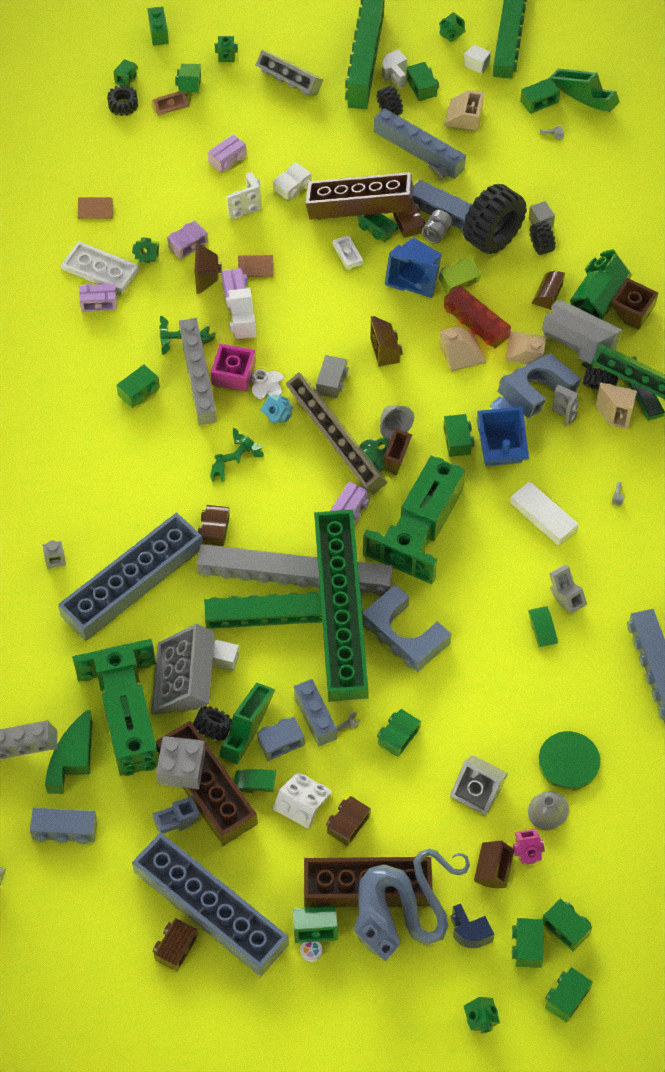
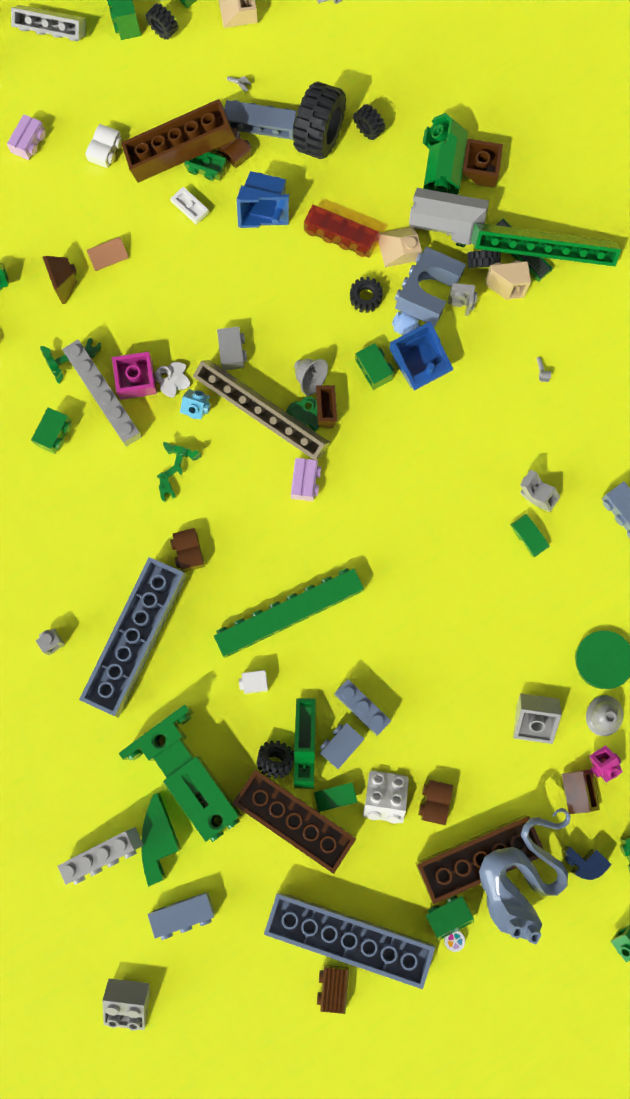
camera: 20 degrees left, 20 degrees up
(179, 816) = (281, 864): sand blue brick -> none
(180, 762) = (267, 821): light grey brick -> none
(183, 671) = (225, 717): light grey slope -> none
(185, 239) = (28, 249): lavender brick -> none
(233, 280) = (98, 287): lavender brick -> none
(242, 313) = (117, 312): white brick -> none
(245, 200) = (69, 185): white bracket -> none
(282, 568) = (281, 568): light grey brick -> none
(341, 606) = (344, 594): green brick -> none
(349, 723) = (394, 703): light grey hand -> none
(384, 342) = (266, 293): reddish brown slope -> none
(398, 732) = (445, 695): green brick -> none
(414, 651) = (380, 589): sand blue arch -> none
(419, 142) = (208, 57): sand blue brick -> none
(420, 521) = (378, 472): green brick -> none
(437, 226) = (263, 145): light grey wheel -> none
(460, 348) = (338, 271): tan slope -> none
(462, 273) = (307, 193): lime brick -> none
(477, 367) = (366, 304): none -> black tyre
(541, 212) = (357, 96): light grey brick -> none
(544, 513) = (485, 417): white piece -> none
(549, 289) = (395, 175): reddish brown brick -> none

